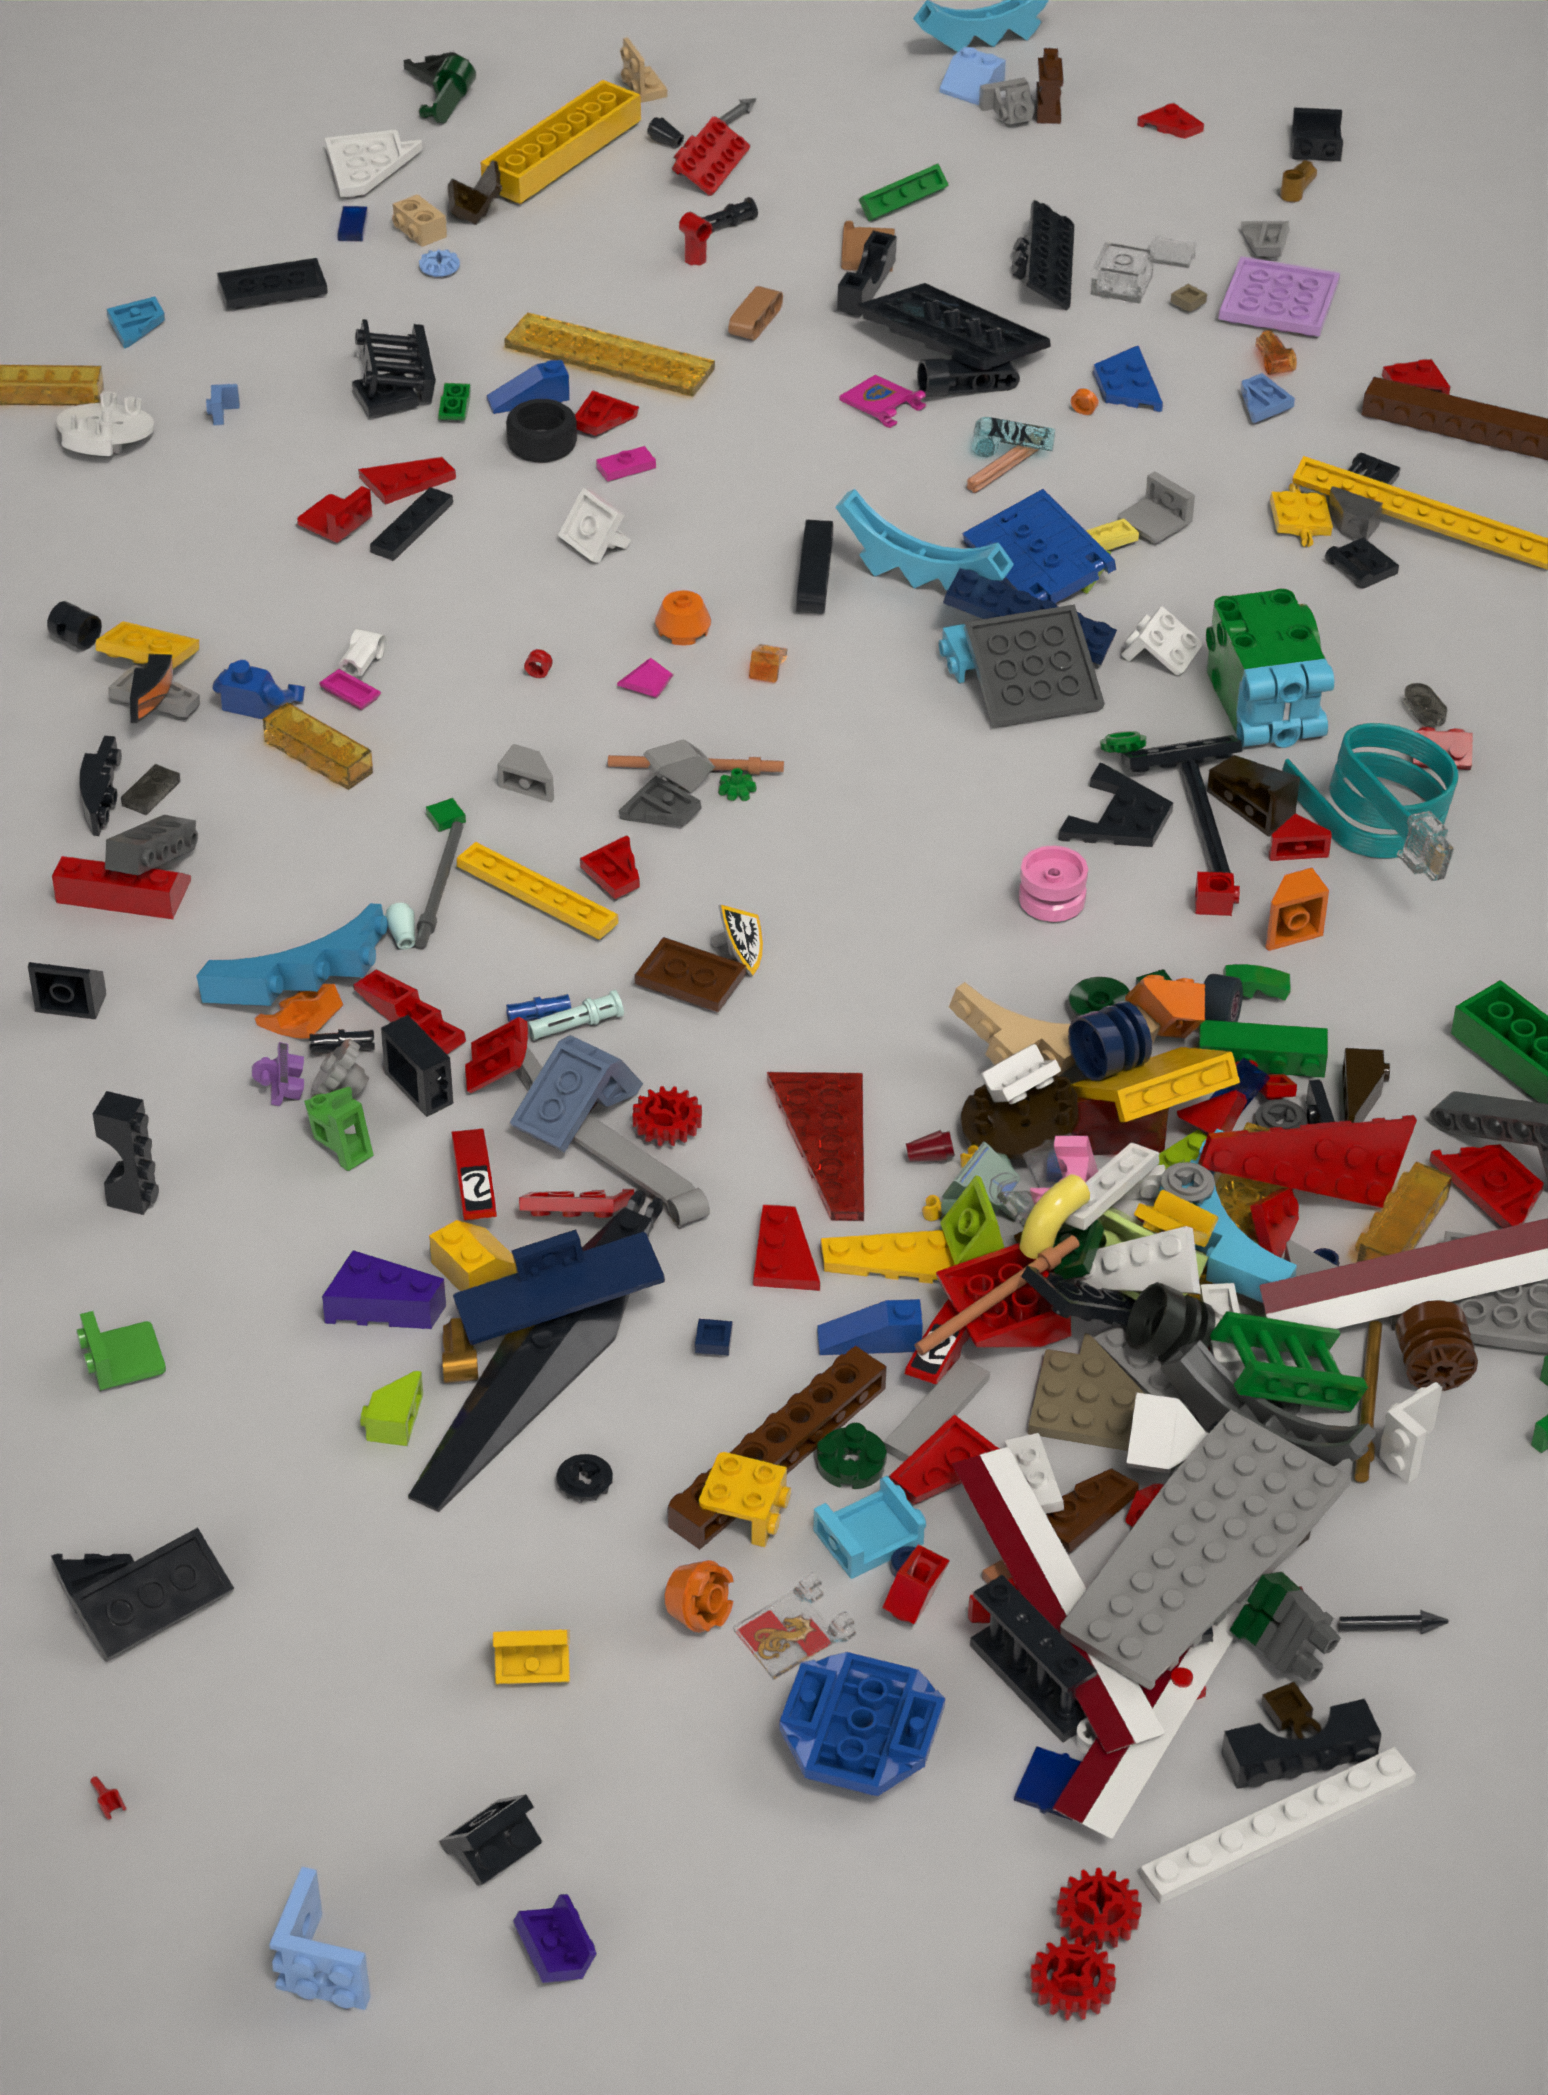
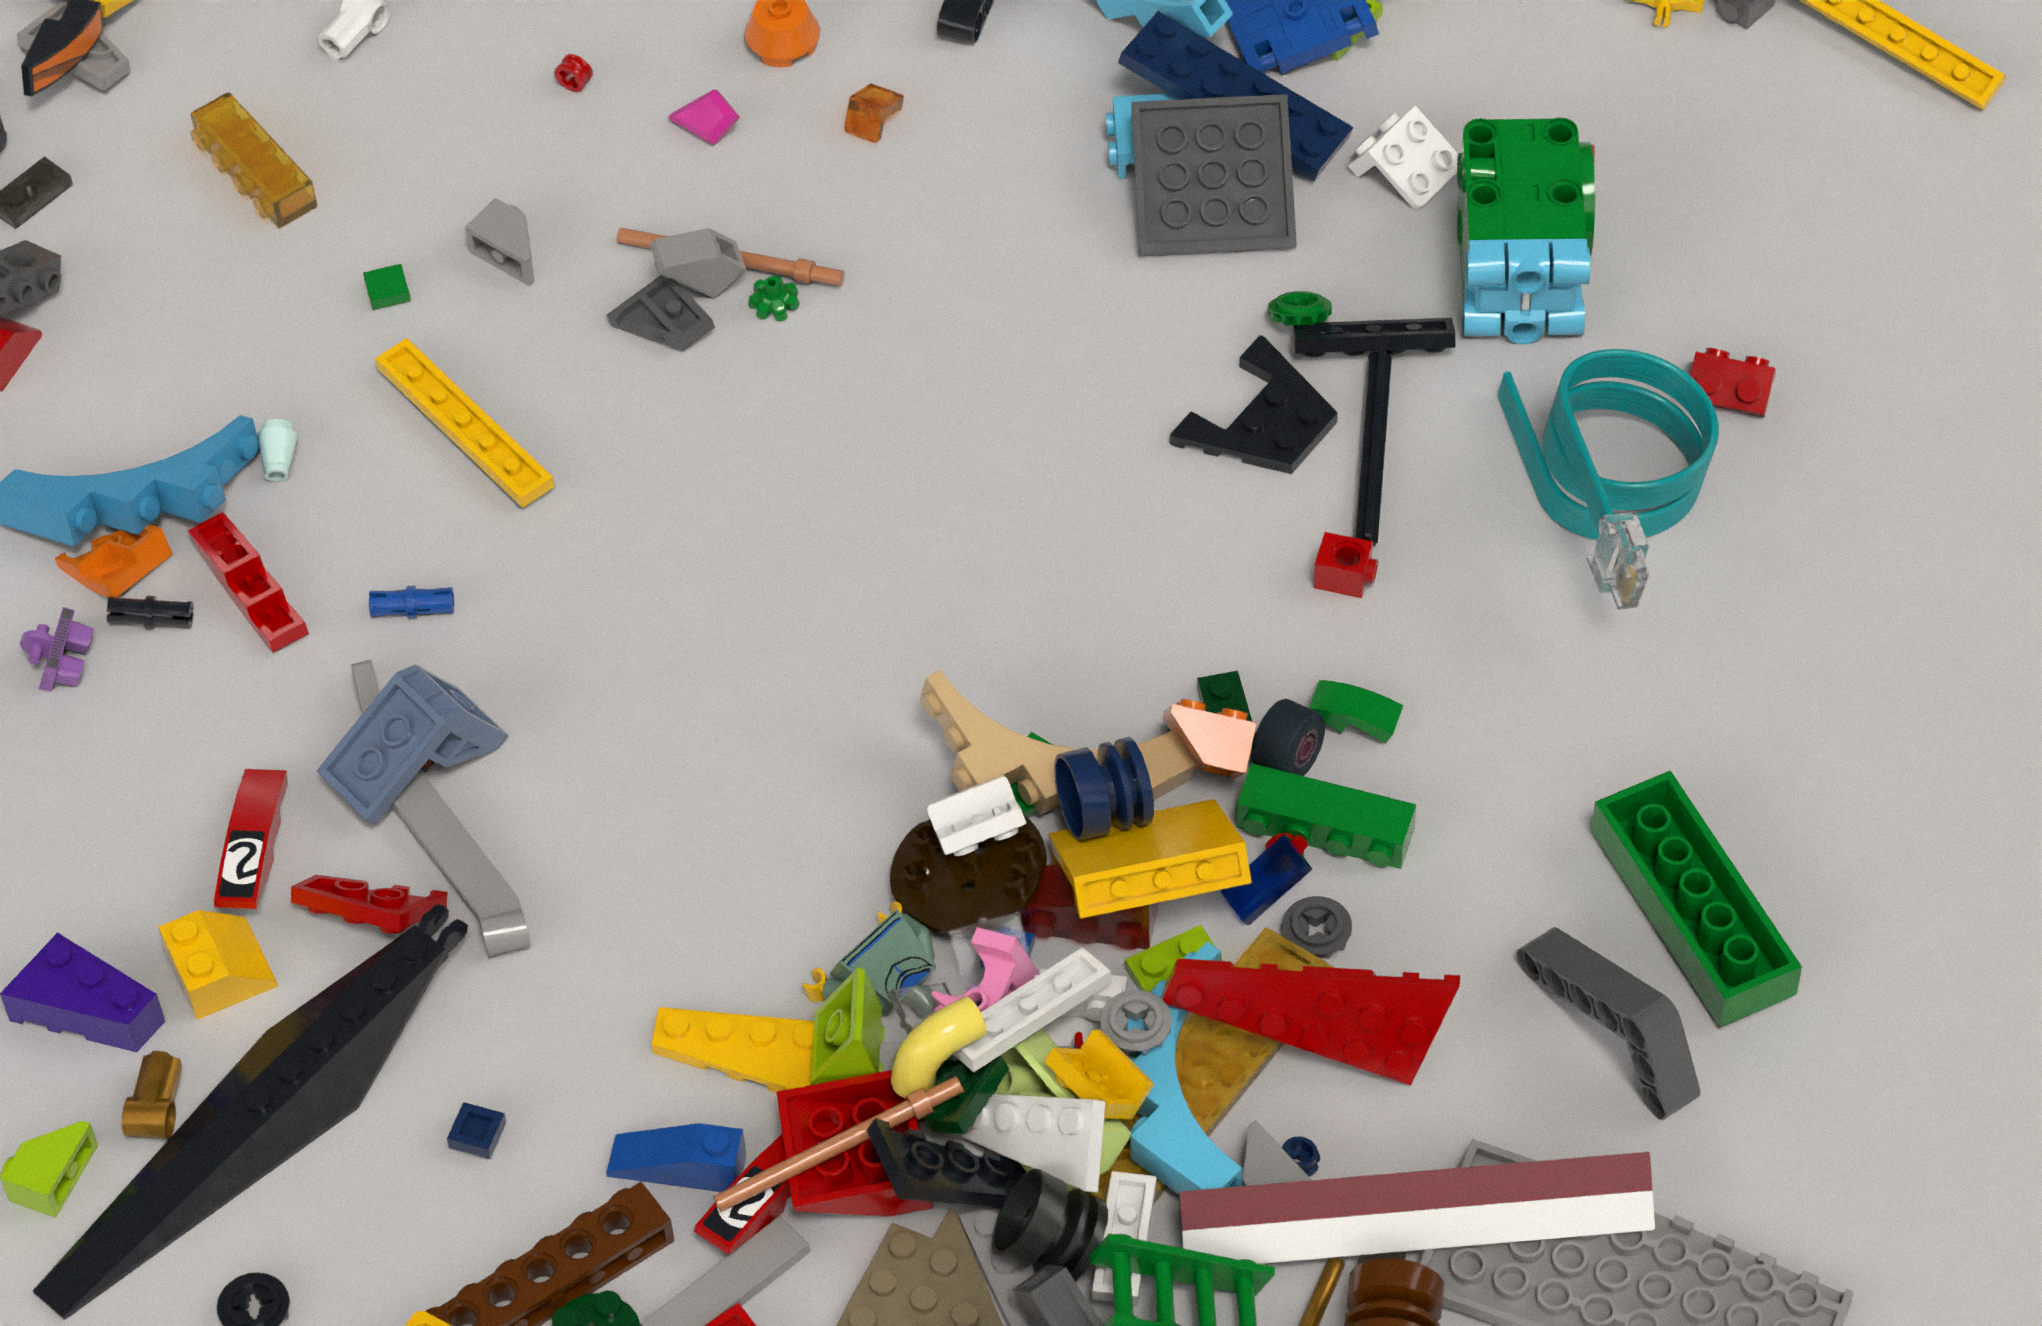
camera: 15 degrees right, 10 degrees up
(252, 690) = (194, 67): blue torso -> none
(330, 1116) = (94, 728): bright green tile -> none
(341, 1071) = (129, 662): light grey plant -> none
(350, 689) = (324, 76): dark pink tile -> none
(416, 1065) = (223, 669): black window -> none
(428, 921) = (314, 446): dark grey bar -> none
(497, 1054) = (331, 667): red slope -> none
(557, 1280) = (292, 1025): dark blue bracket -> none
(592, 1015) = (403, 630): light aqua pin -> none
(613, 867) = (573, 401): red wing -> none
(664, 1115) = (504, 803): red gear -> none
(690, 974) = (619, 581): reddish brown plate -> none
(742, 936) = (699, 537): shield -> none
(783, 1251) = (606, 1016): red wing -> none
(827, 1127) = (723, 838): clear red wing -> none
(931, 1147) = (844, 895): dark red cone -> none
(1053, 883) = (1129, 519): bright pink wheel -> none
(1095, 994) = (1134, 693): dark green dish -> none
(1215, 1113) = (1225, 914): red slope -> none
(1255, 792) = (1449, 417): dark brown wedge -> none
(1275, 1219) = (1249, 1087): red wing -> none
(1279, 1087) = (1326, 877): red plate -> none
(1297, 909) = (1435, 612): orange slope -> none
(1299, 840) = (1484, 498): red slope -> none
(1317, 1104) = (1367, 926): black plate -> none
(1362, 1081) = (1439, 897): dark brown slope -> none
(1363, 562) = (1736, 60): black plate -> none
(1405, 1213) = (1426, 1108): clear yellow brick -> none
(1425, 705) = (1736, 316): clear smoke plate -> none
(1492, 1181) = (1566, 1073): red wing -> none

